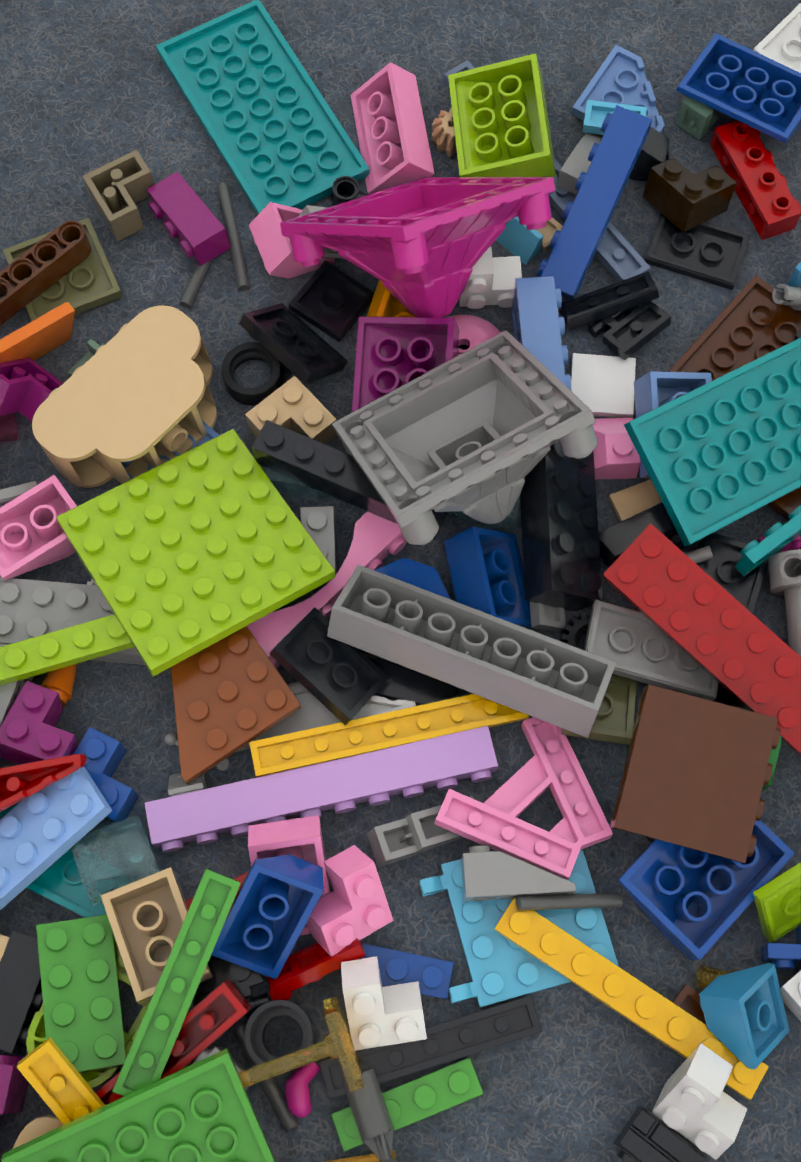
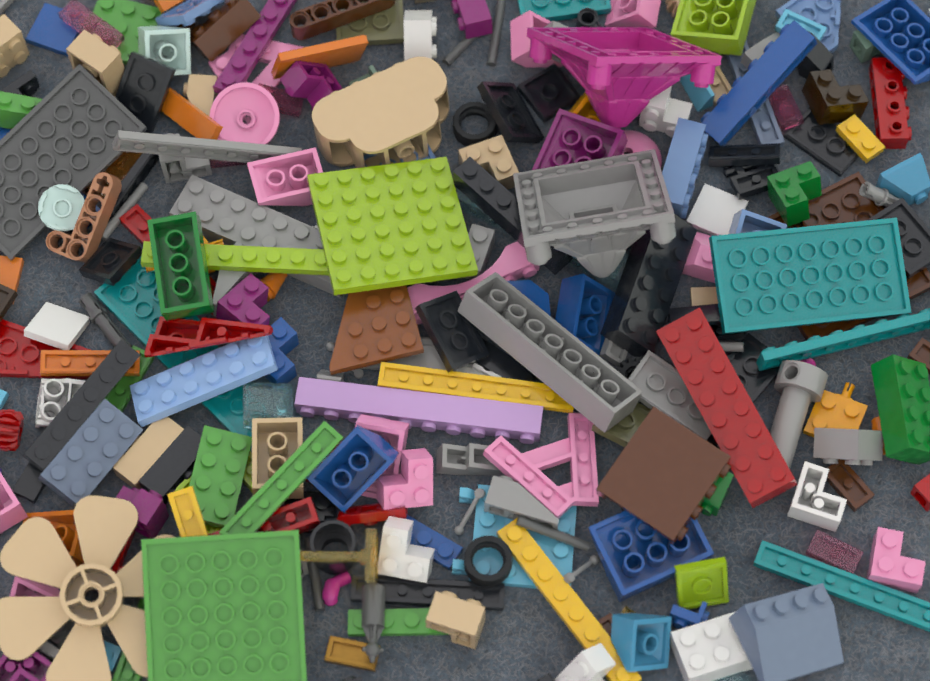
camera: 20 degrees right, 5 degrees down
(136, 278) = (418, 33): none -> white brick
(449, 880) = (479, 493): none -> light grey hinge
(489, 1079) = (457, 618): none -> tan brick
(526, 967) = (487, 542): none -> black tyre
(617, 958) = (570, 577): none -> light grey hinge
(635, 226) = (785, 108): none -> clear pink plate
(691, 328) = (792, 190): none -> green brick
(740, 233) = (860, 138): none -> yellow plate

